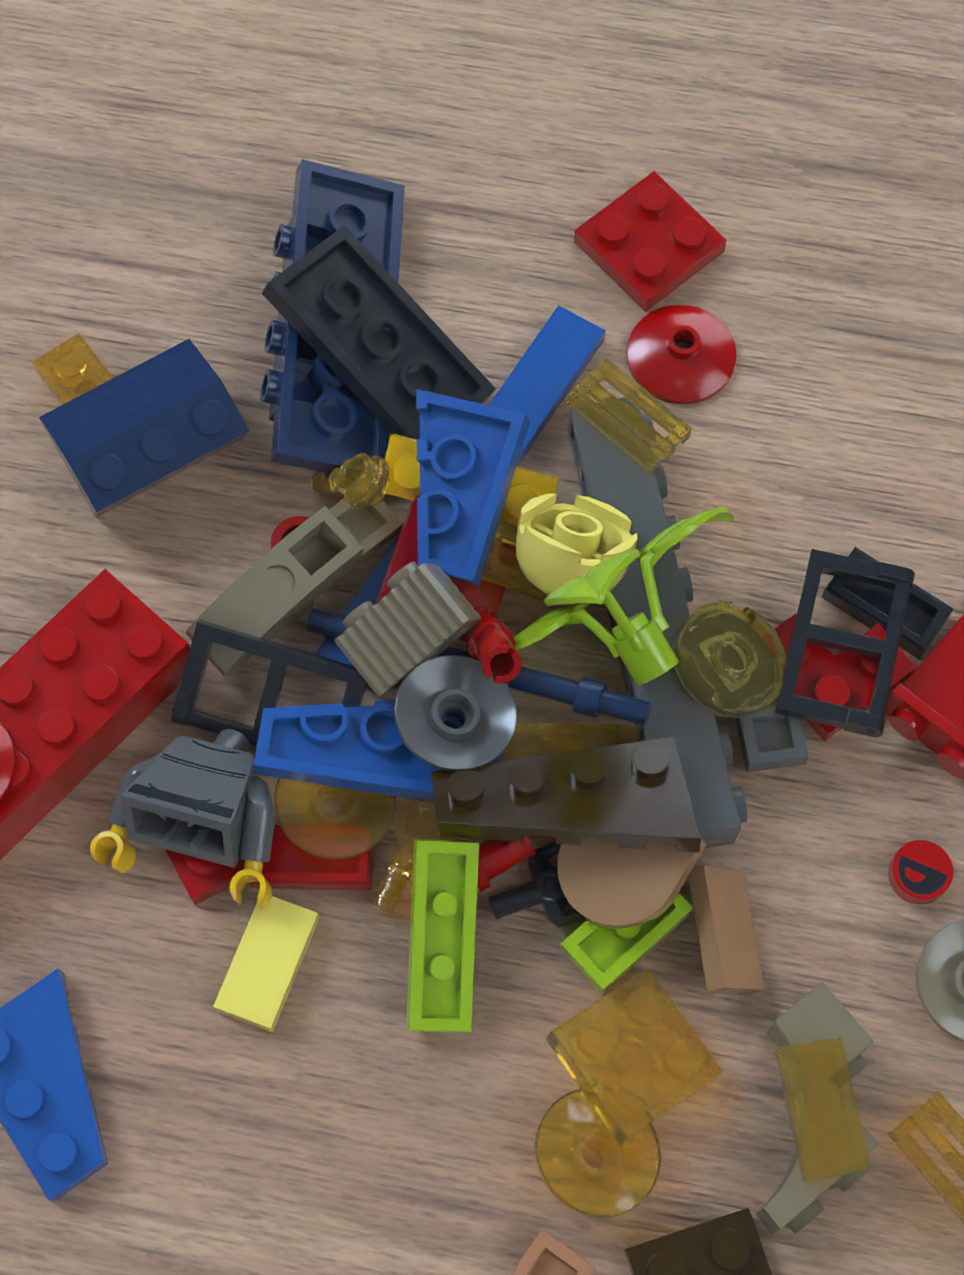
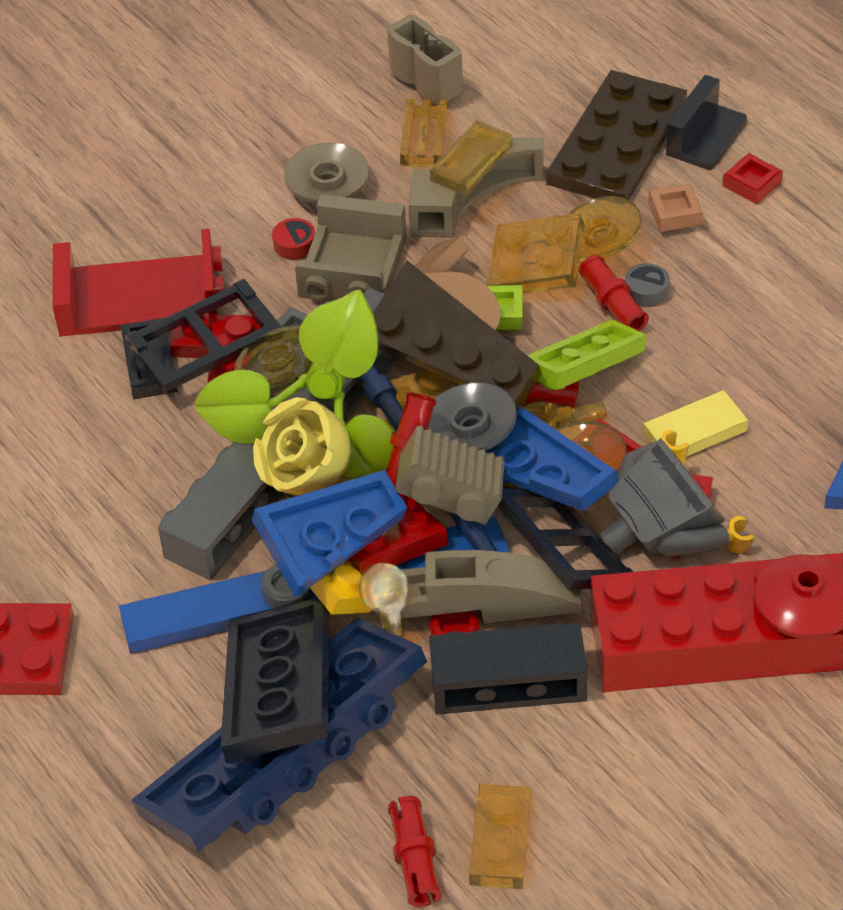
camera: 135 degrees left, 20 degrees down
(137, 316) = (414, 851): none -> red pin
(144, 426) = (489, 743): dark blue slope -> none
(206, 528) = (508, 668): none -> black brick
(485, 1129) = (648, 283): none -> dark grey tile
(500, 1070) = (612, 293): none -> red pin
(663, 447) = (180, 540): clear yellow tile -> none
(678, 373) = (86, 571): red dish -> none
(829, 890) = (352, 248): none -> dark tan panel

